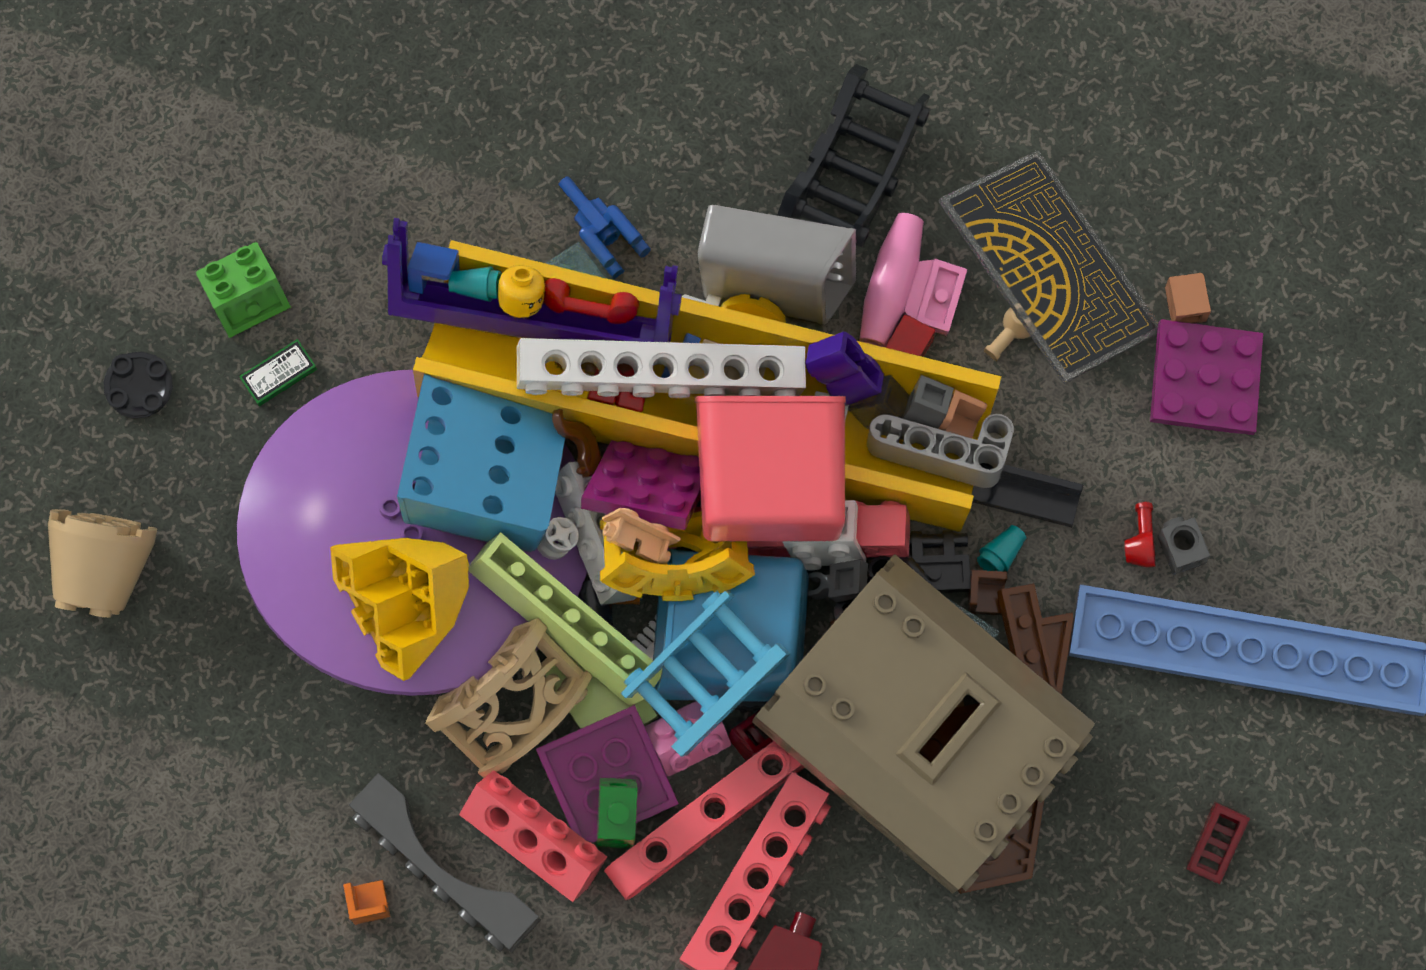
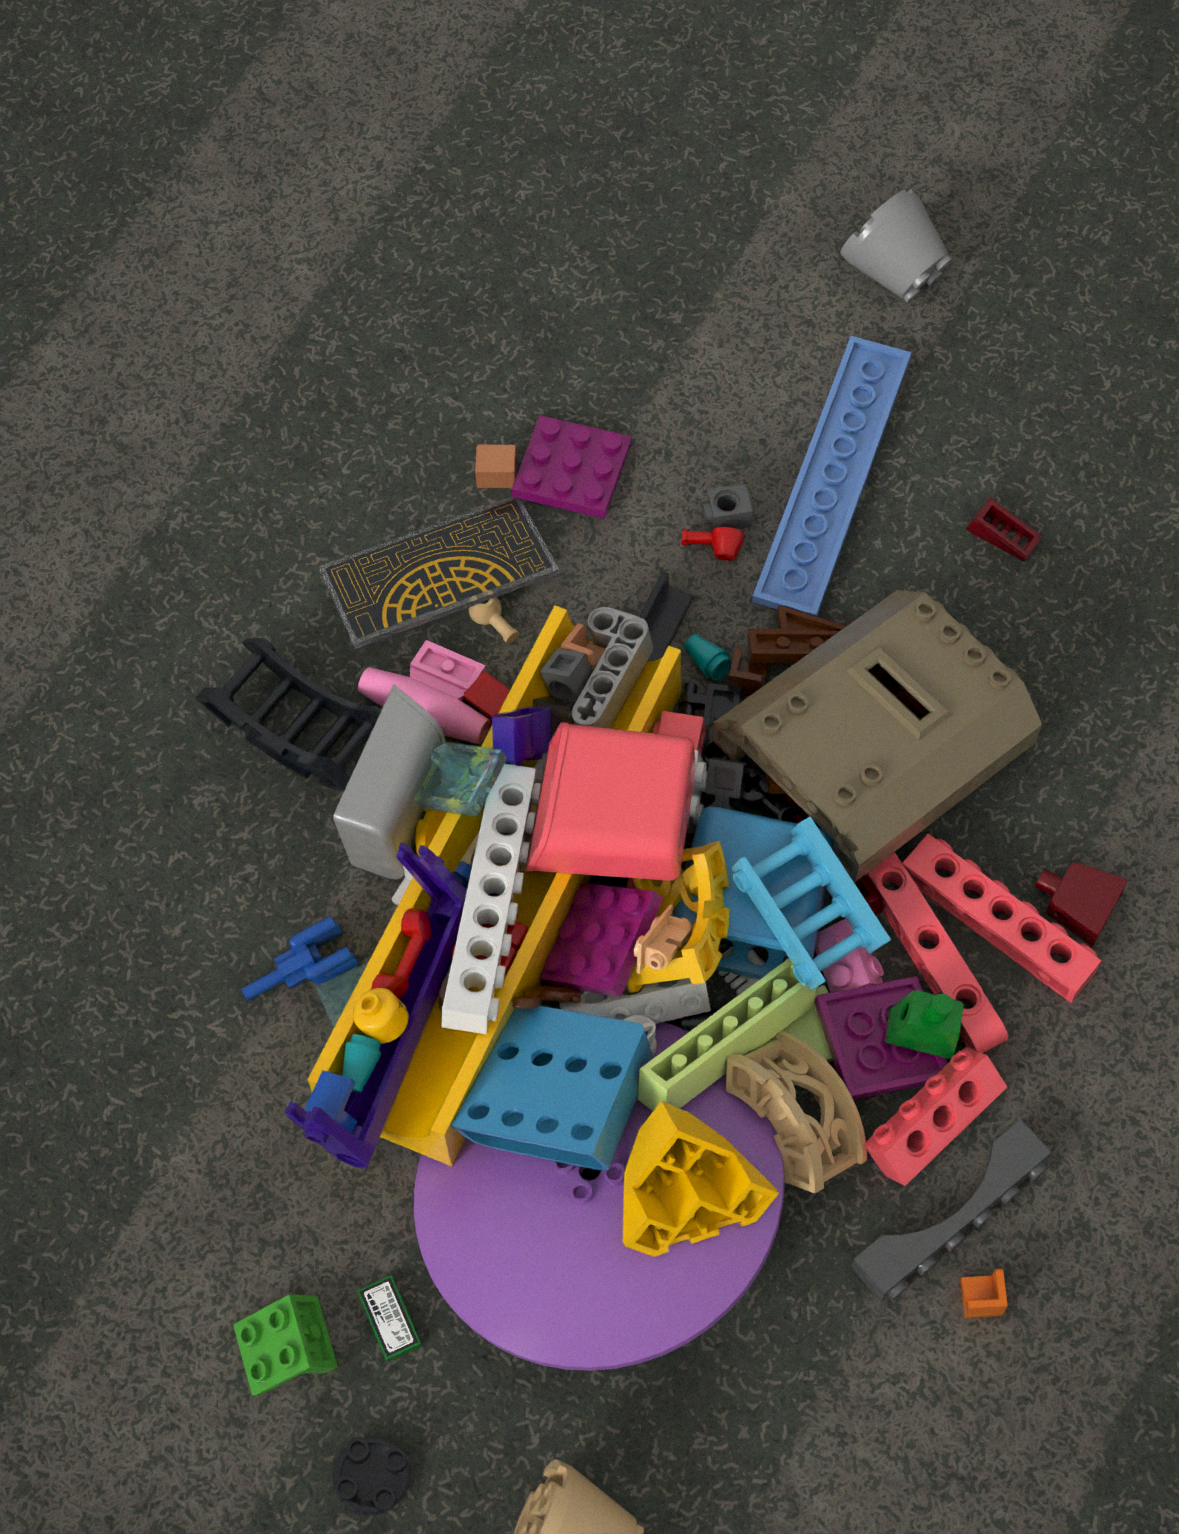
camera: 80 degrees left, 10 degrees down
(777, 310) = (454, 776): none -> clear light blue plate

